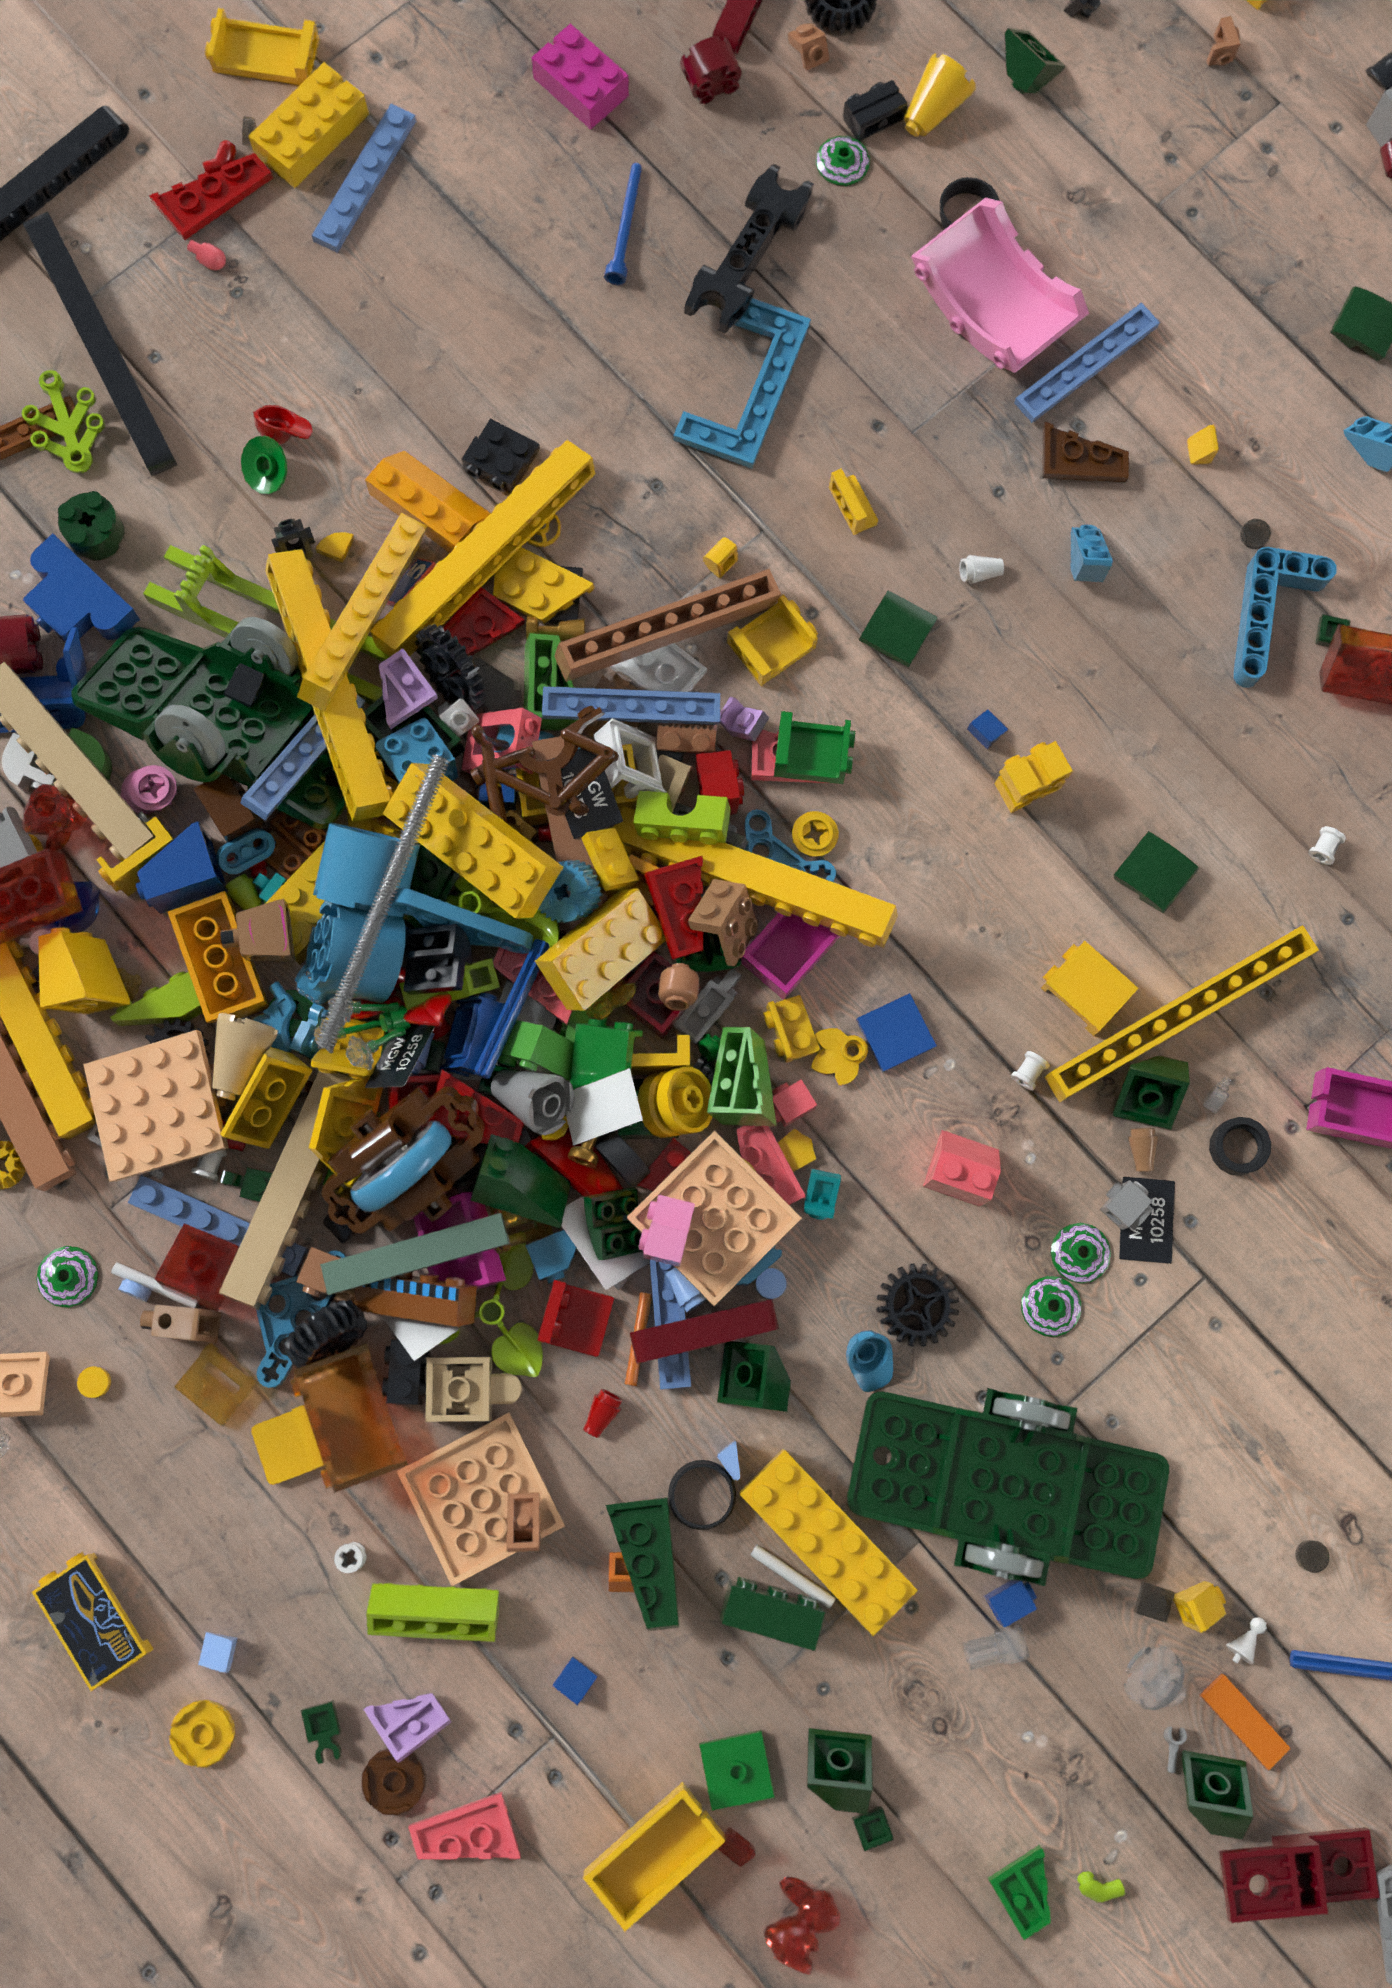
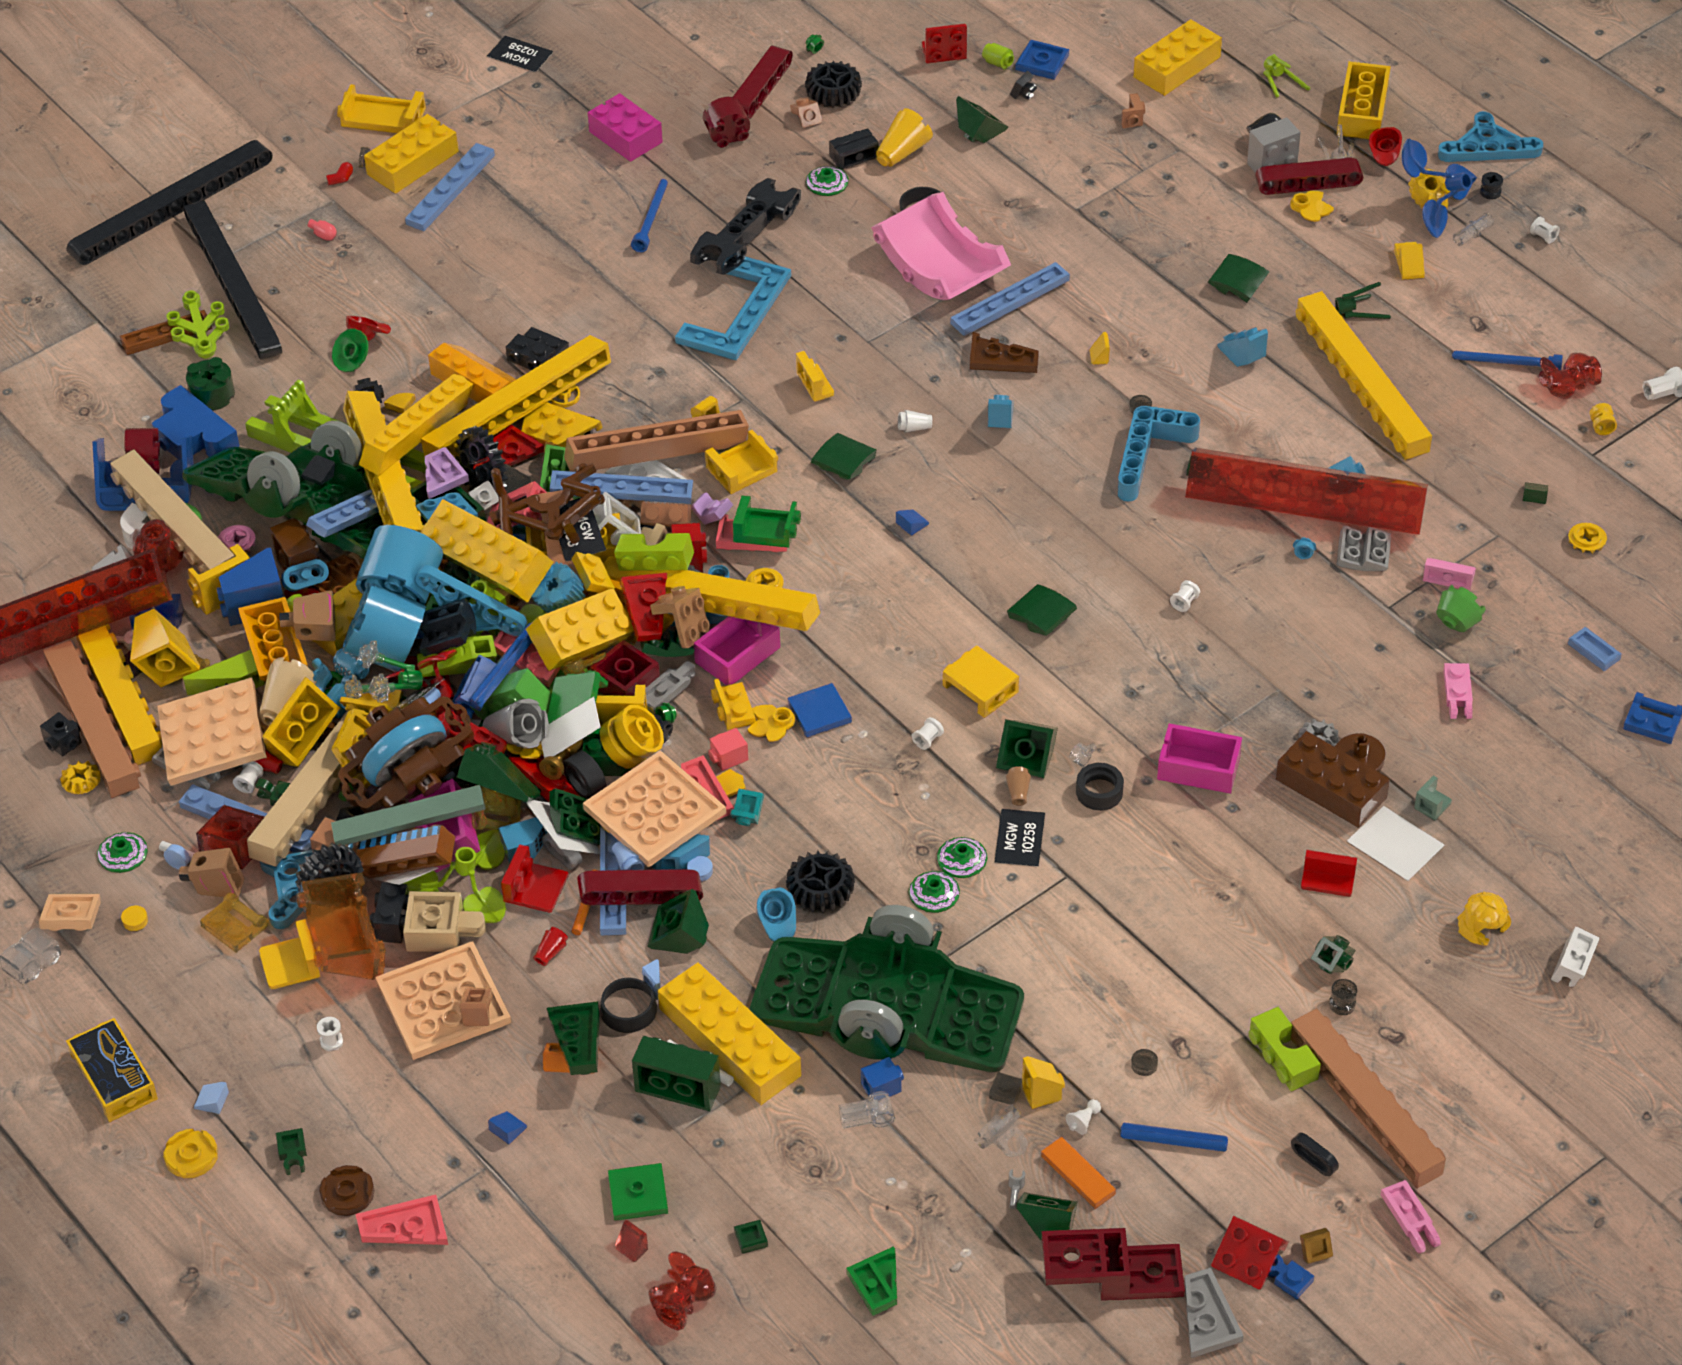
camera: 10 degrees right, 30 degrees down
(205, 199) = (331, 194): red wing -> none
(382, 902) = (408, 575): light grey axle -> none
(408, 1723) = (365, 1146): lavender wing -> none
(432, 1612) = (394, 1068): lime brick -> none
(653, 1856) = (560, 1235): yellow piece -> none
(668, 1230) = (612, 803): bright pink brick -> none
(678, 987) = (640, 655): nougat head -> none
(742, 1080) = (686, 726): bright green wedge -> none
(840, 1769) = (726, 1190): dark green slope -> none
(963, 1169) = (862, 790): coral slope -> none
(1032, 776) = (942, 543): yellow brick -> none
(1097, 1891) = (941, 1284): lime arm -> none
(1127, 1204) = (1000, 820): light grey brick -> none
(1181, 1013) = (1054, 694): yellow brick -> none

